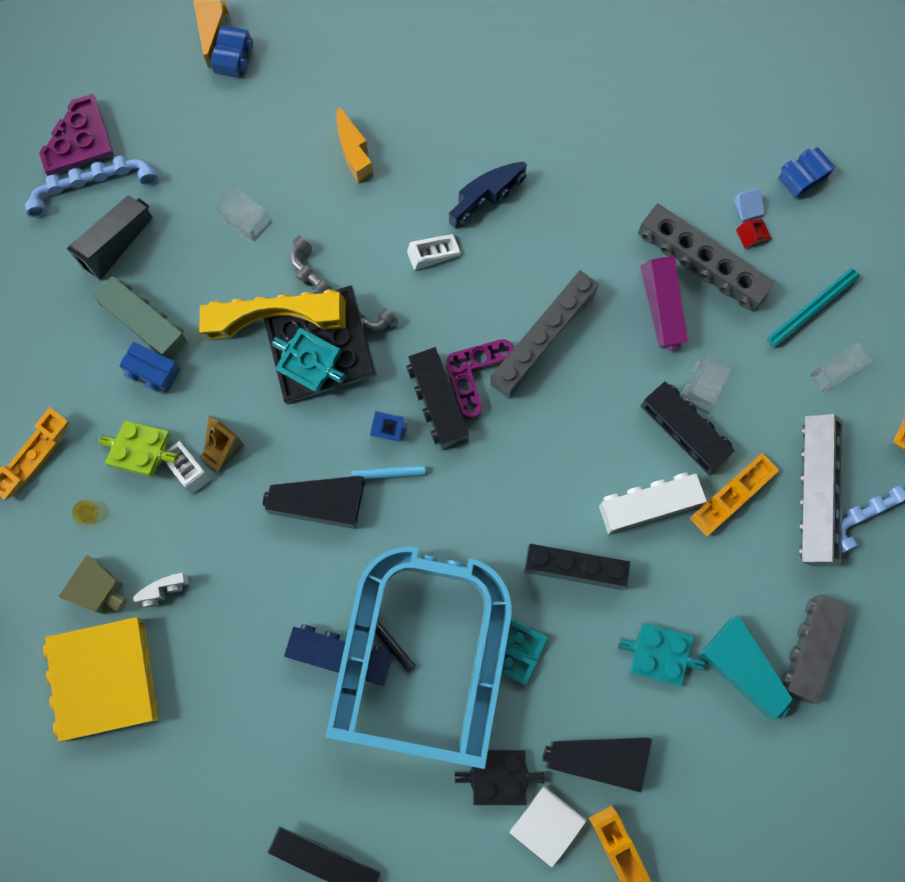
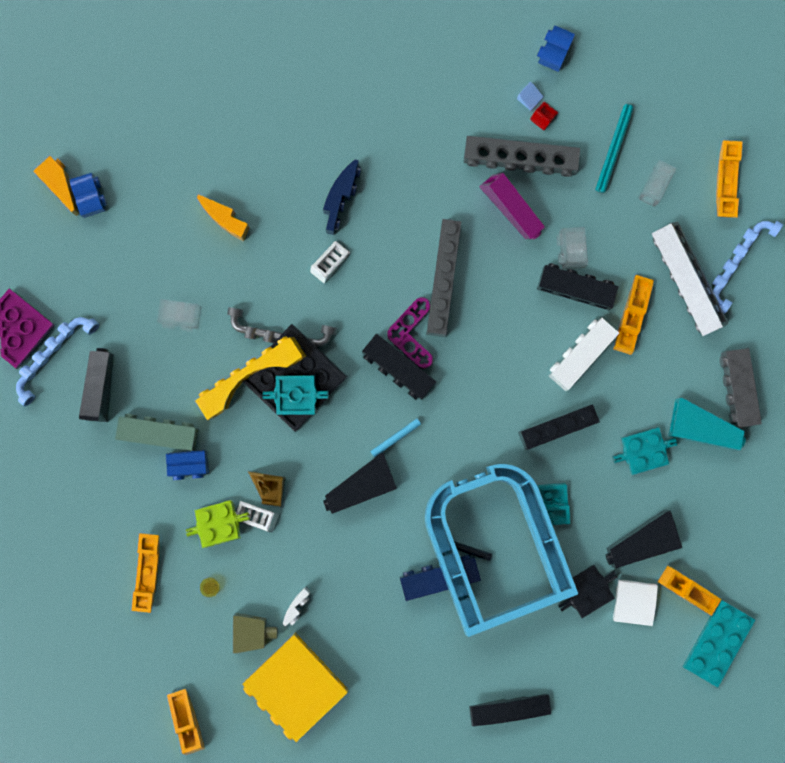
camera: 35 degrees left, 10 degrees up
(379, 421) = (383, 409): blue brick -> none

